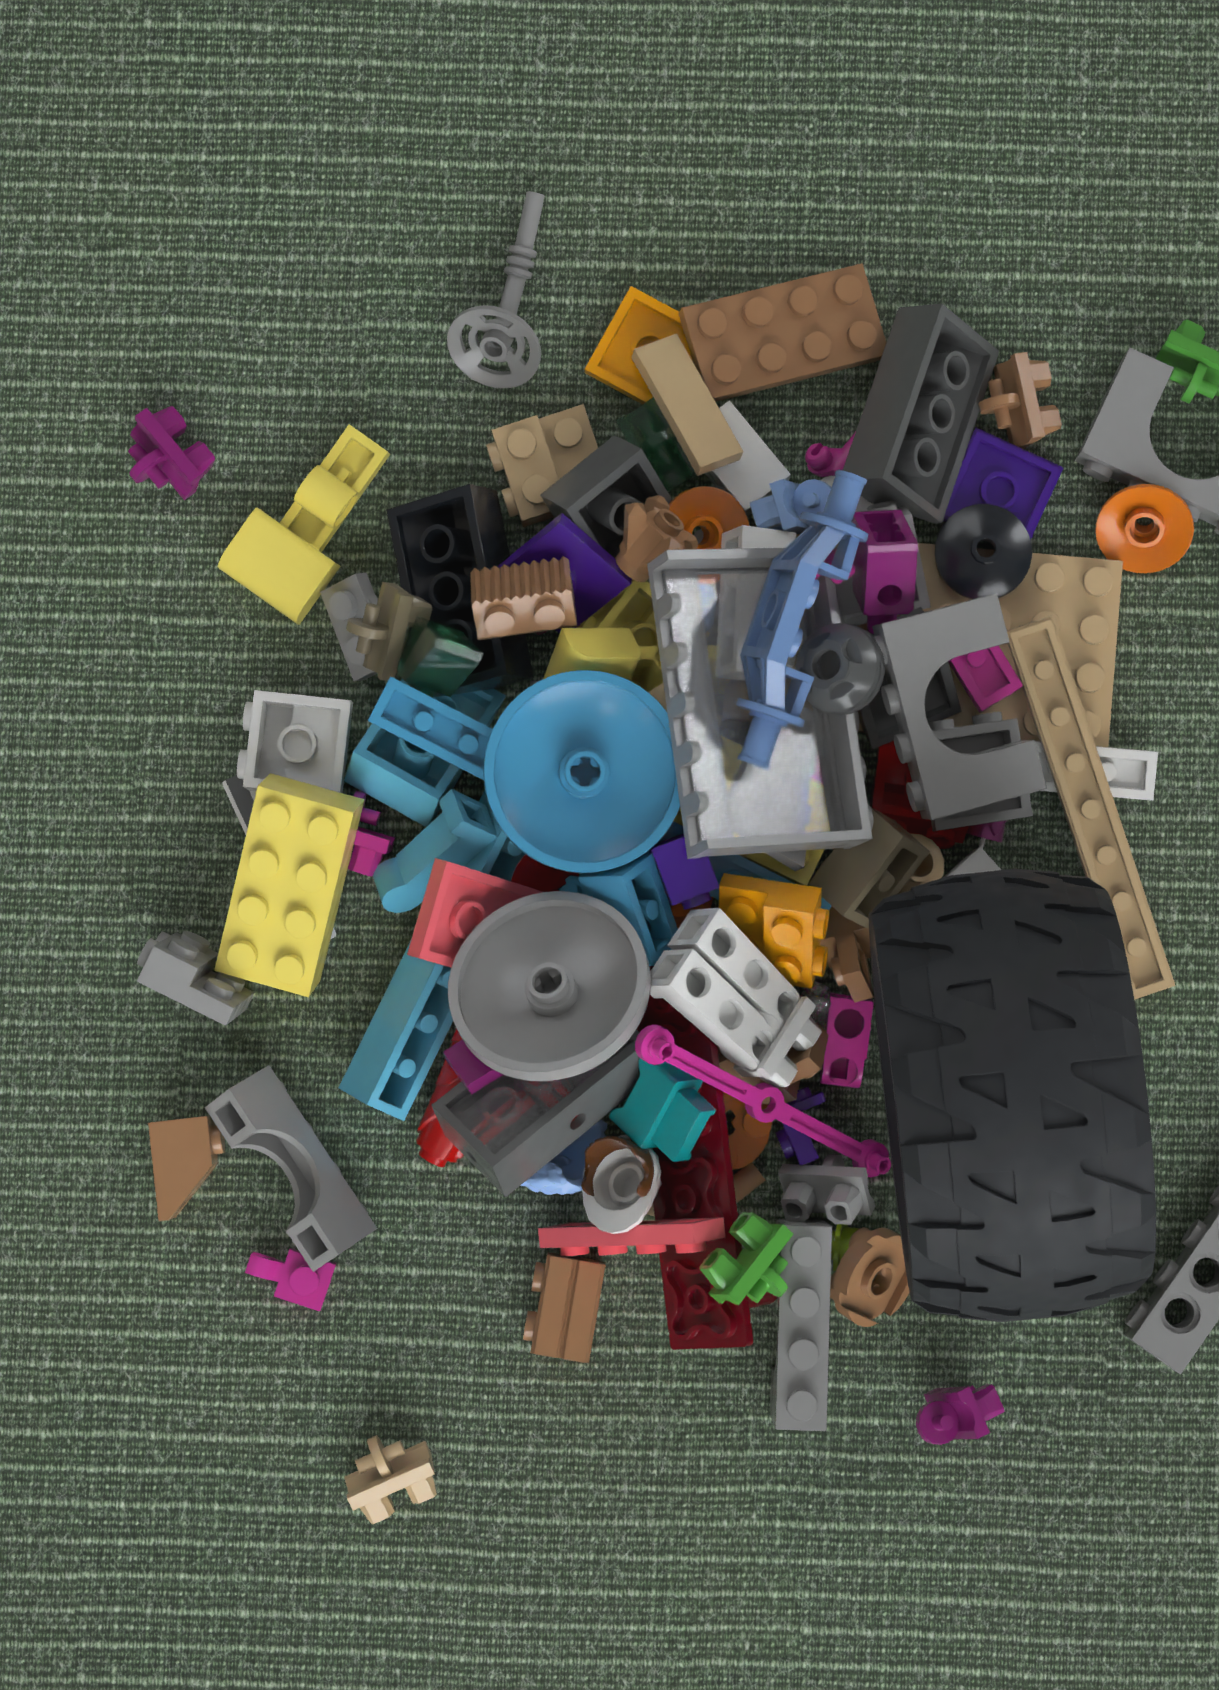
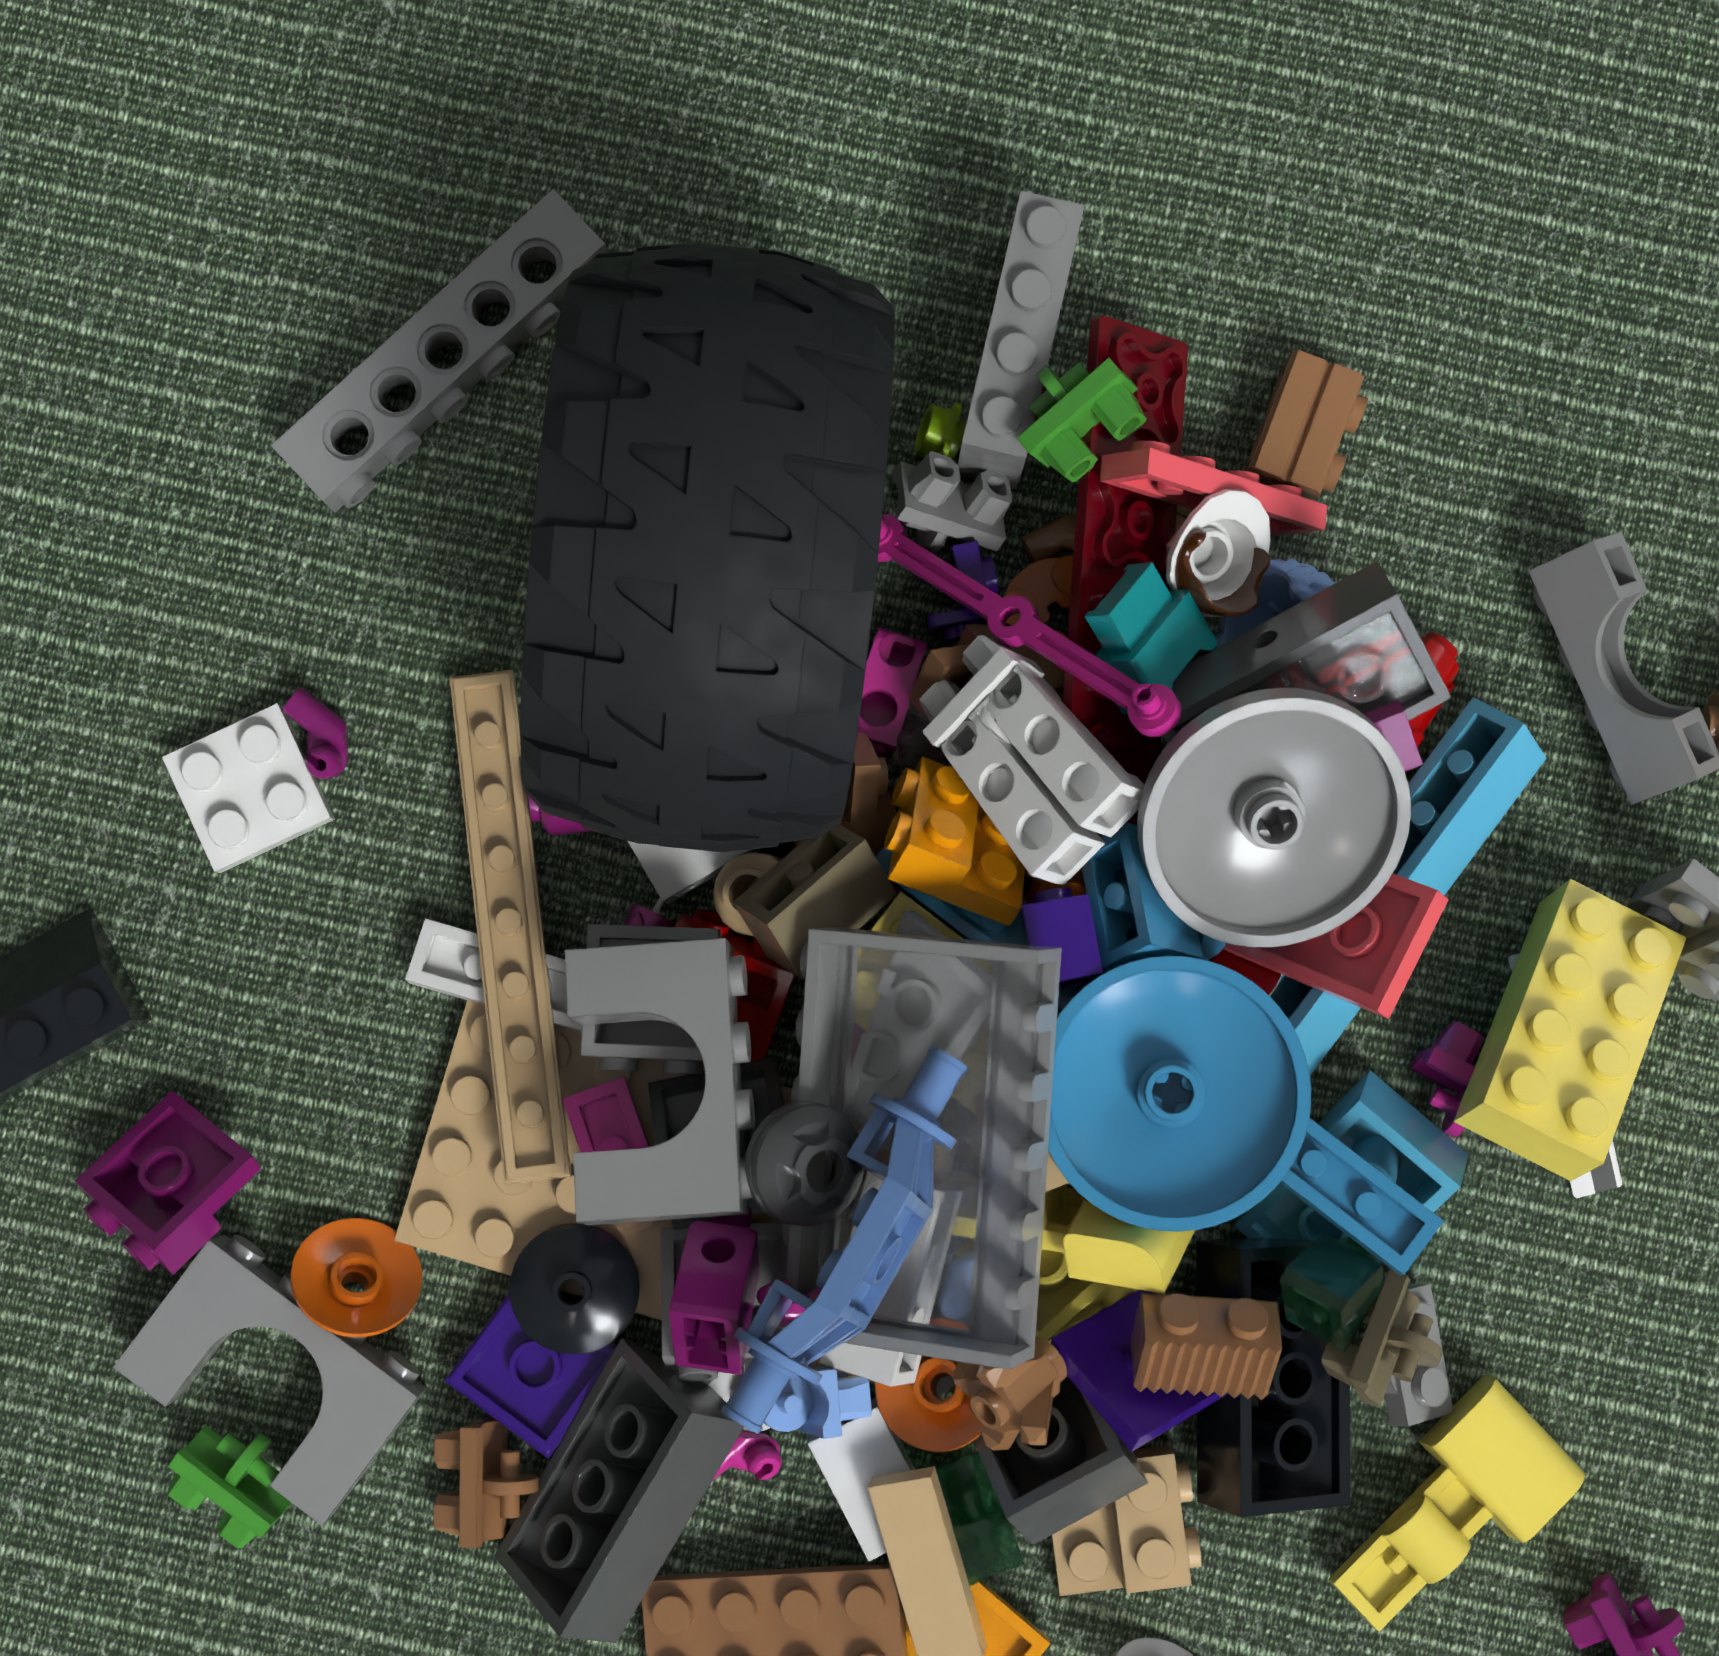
camera: 175 degrees left, 0 degrees up
(294, 1278) = (1644, 533): dark pink plate -> none
(295, 739) = (1523, 1218): white plate -> none
(387, 1472) = (1565, 268): tan hips -> none
(453, 836) = (1359, 1042): medium azure leg -> none
(852, 1283) = (927, 384): medium nougat plate -> none
(957, 1413) = (841, 197): magenta hips -> none

